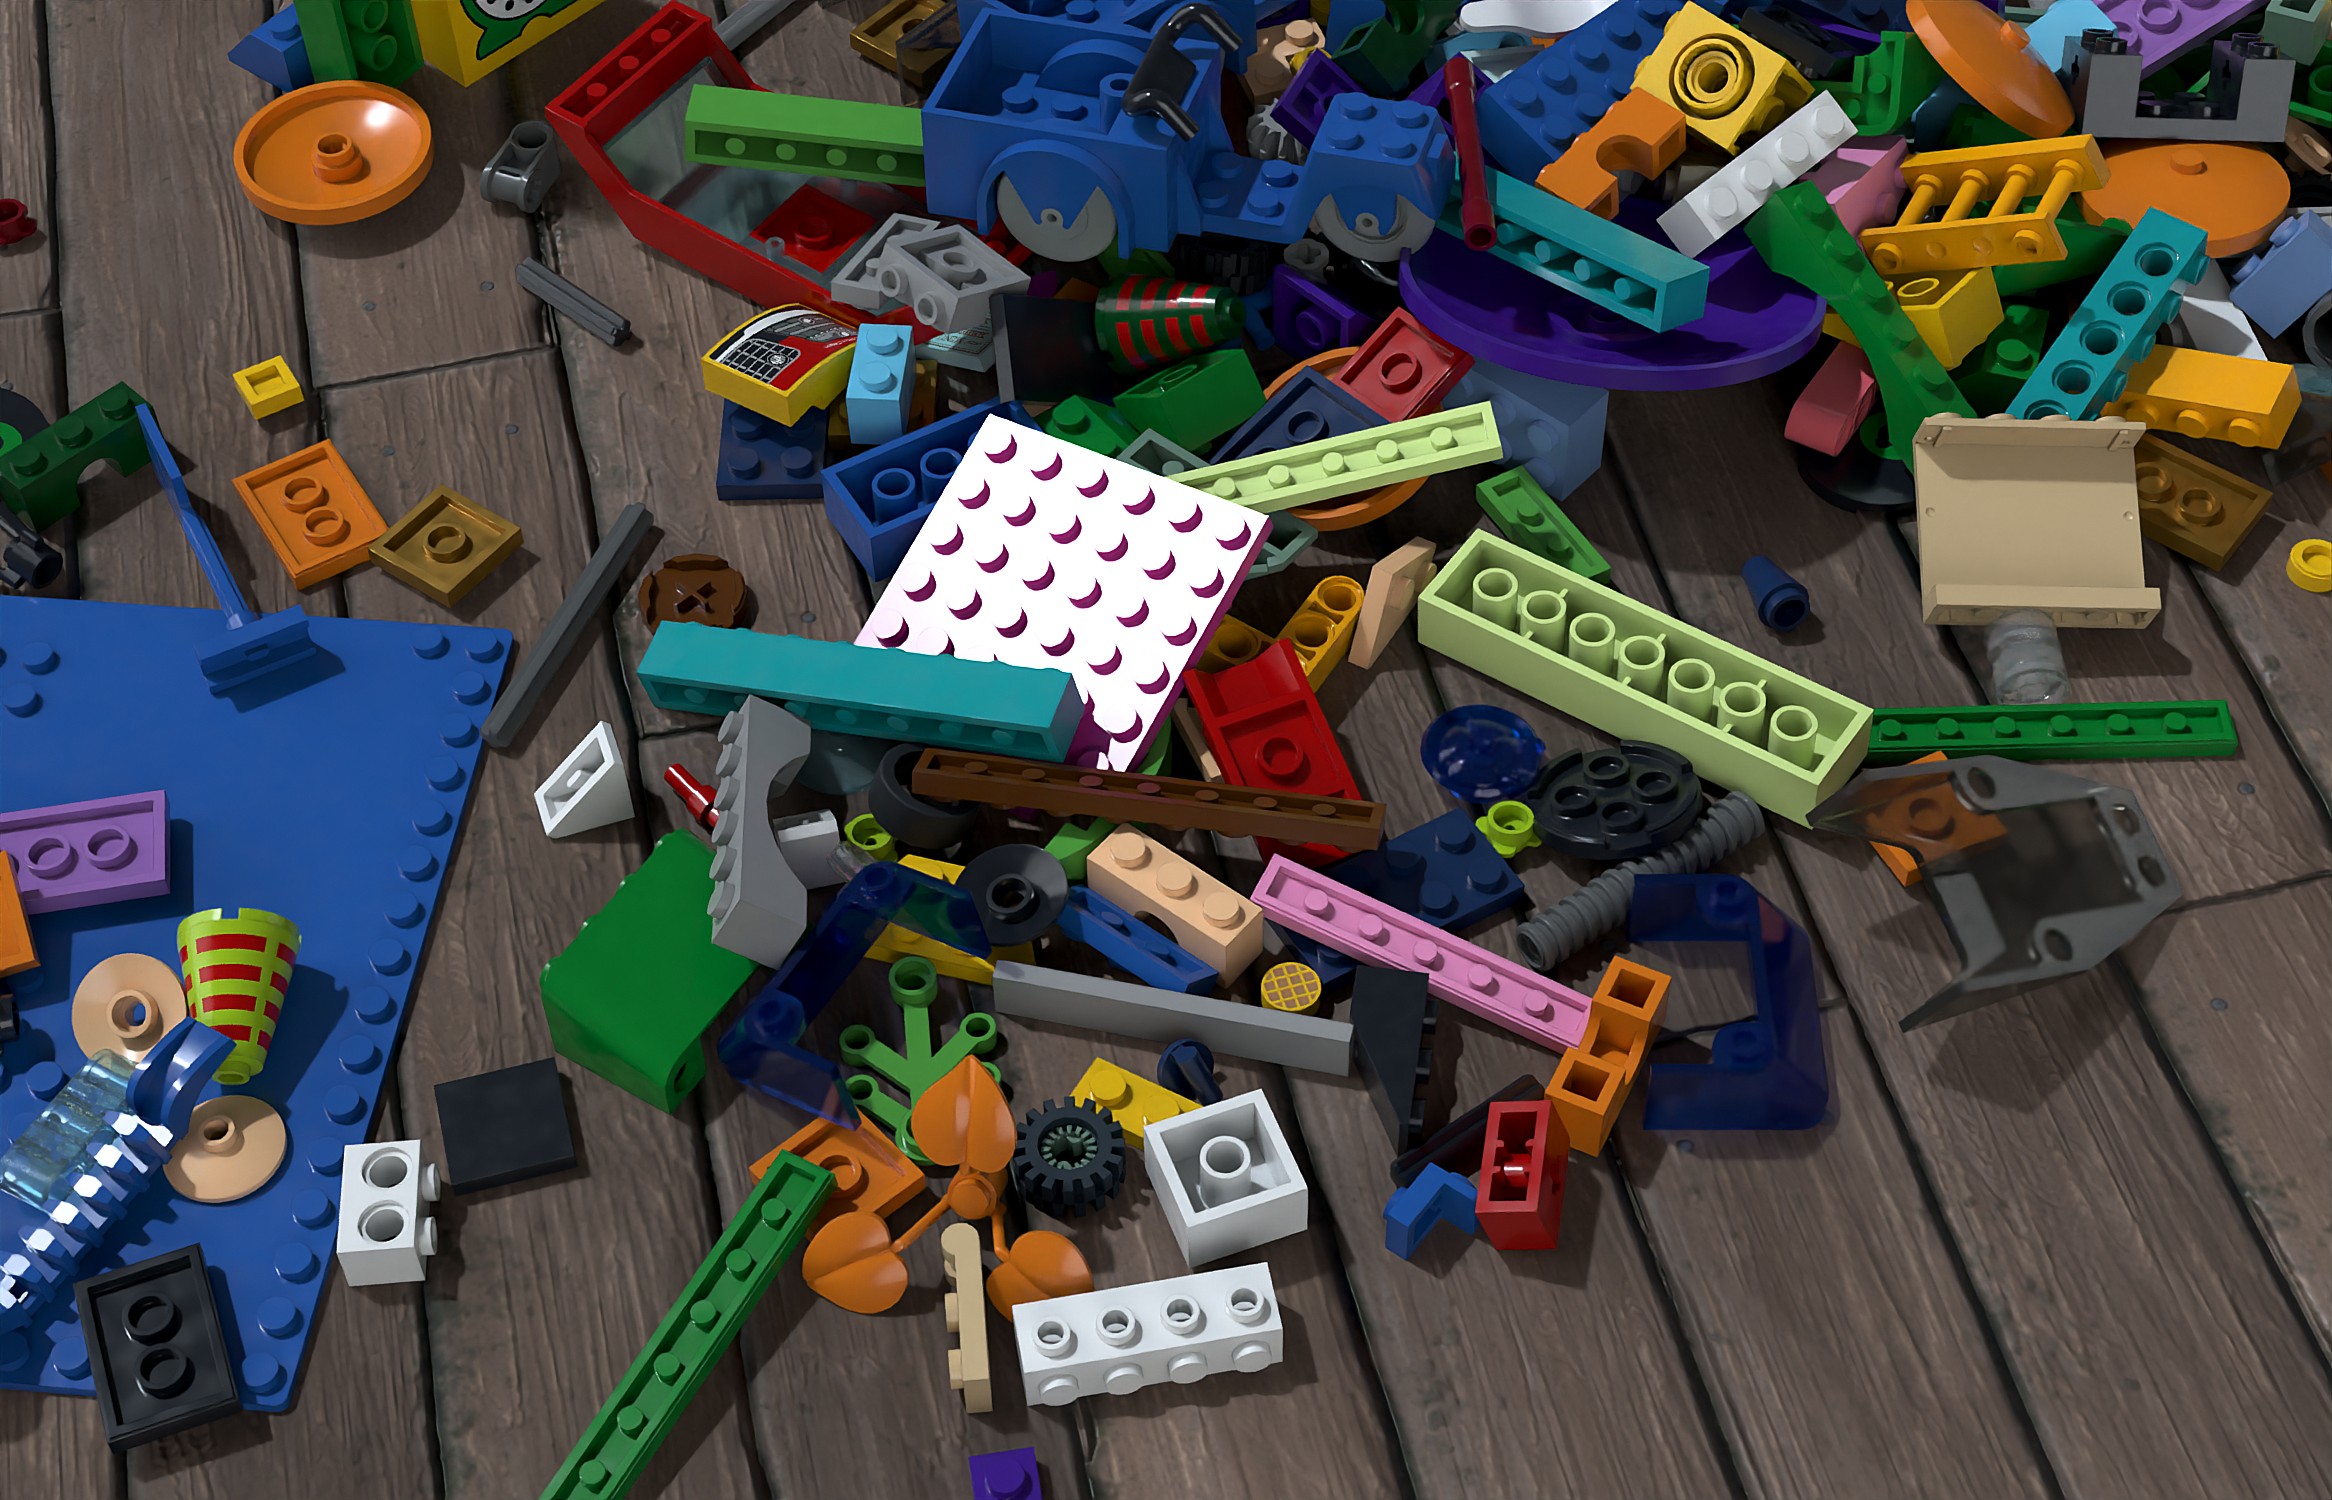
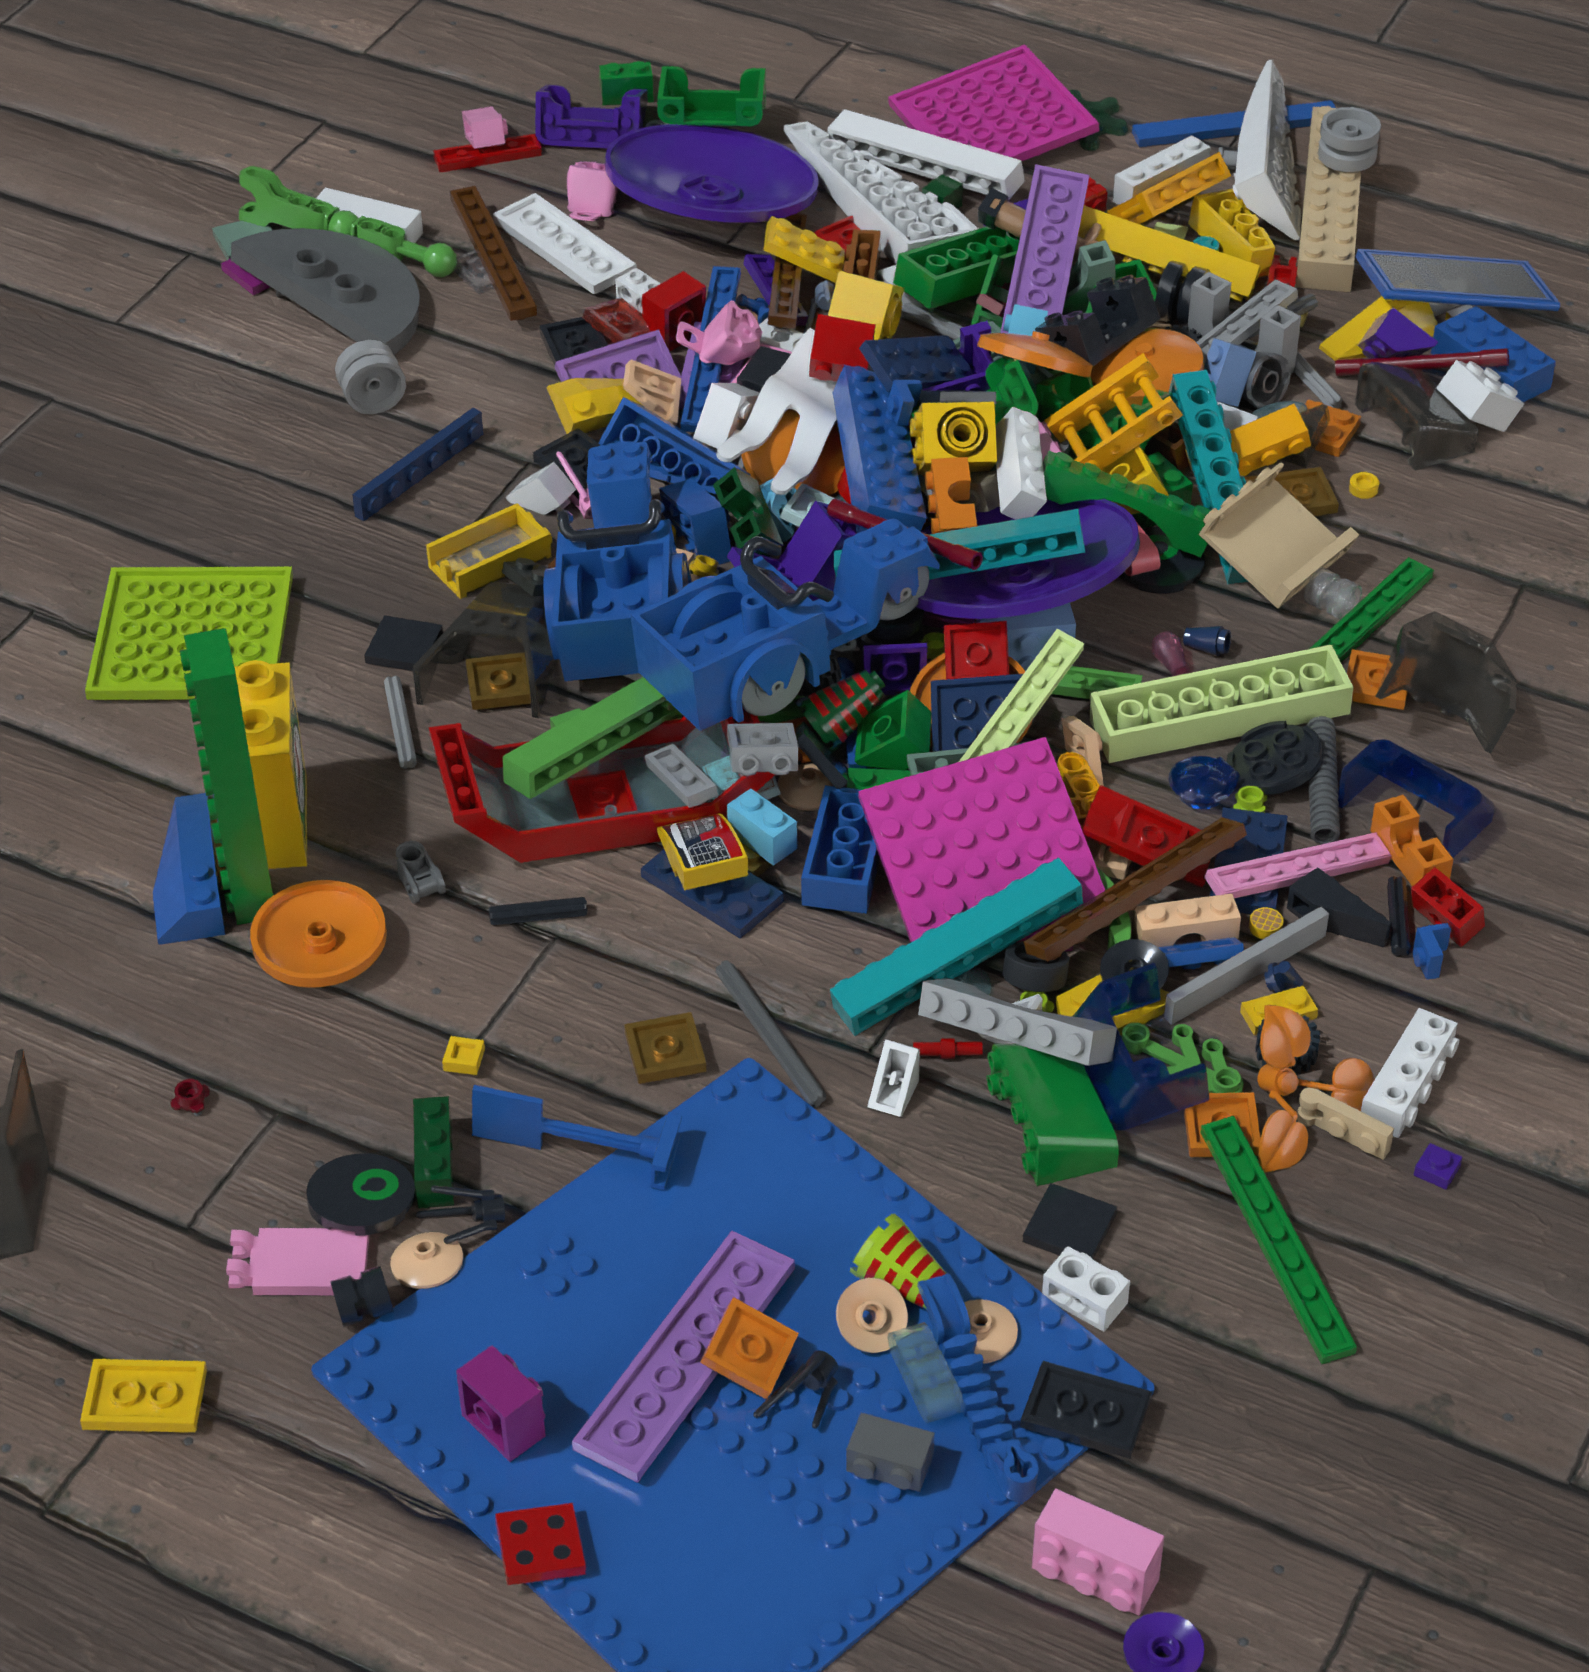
camera: 50 degrees left, 5 degrees down
(311, 513) = (578, 1087): orange tile -> none
(694, 590) = (802, 982): reddish brown tile -> none
(848, 859) = (1059, 1008): clear tile -> none
(1225, 1178) = (1357, 996): white brick -> none
(1698, 568) = (1169, 652): none -> clear pink cone

